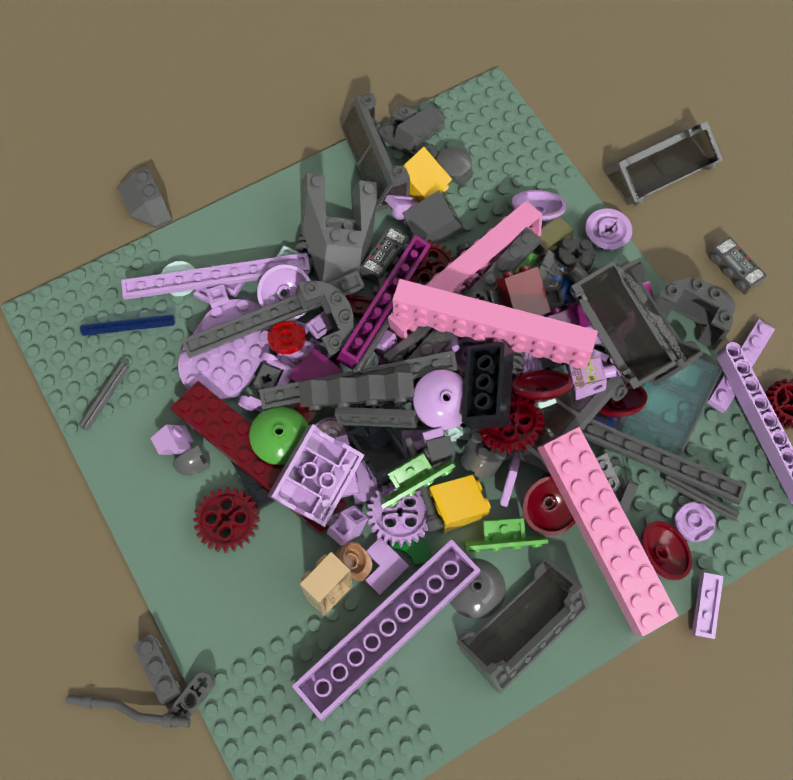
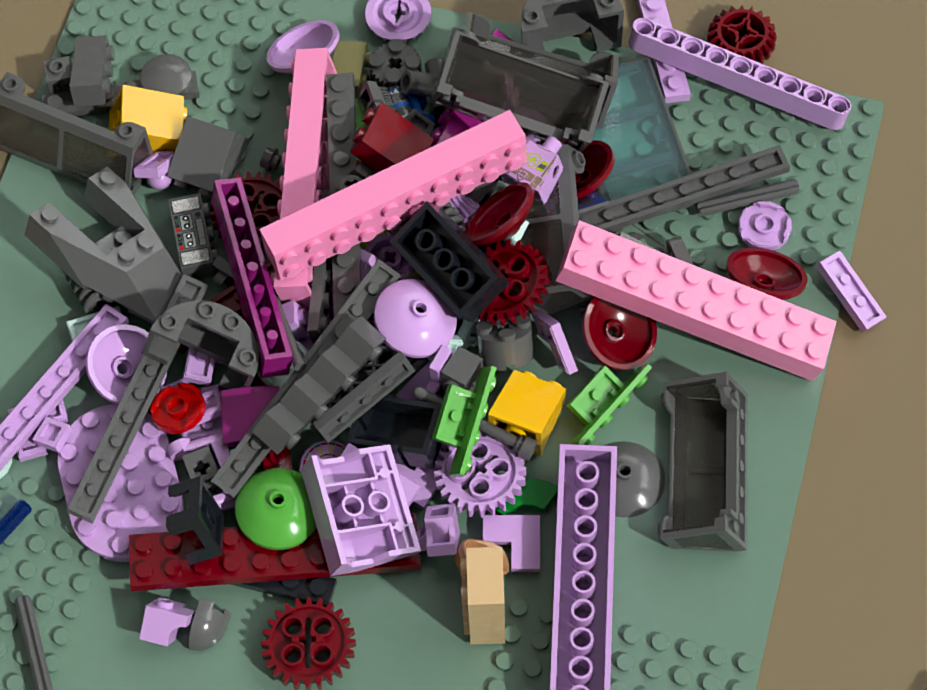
camera: 40 degrees left, 5 degrees down
(232, 406) = (202, 517): none -> black panel

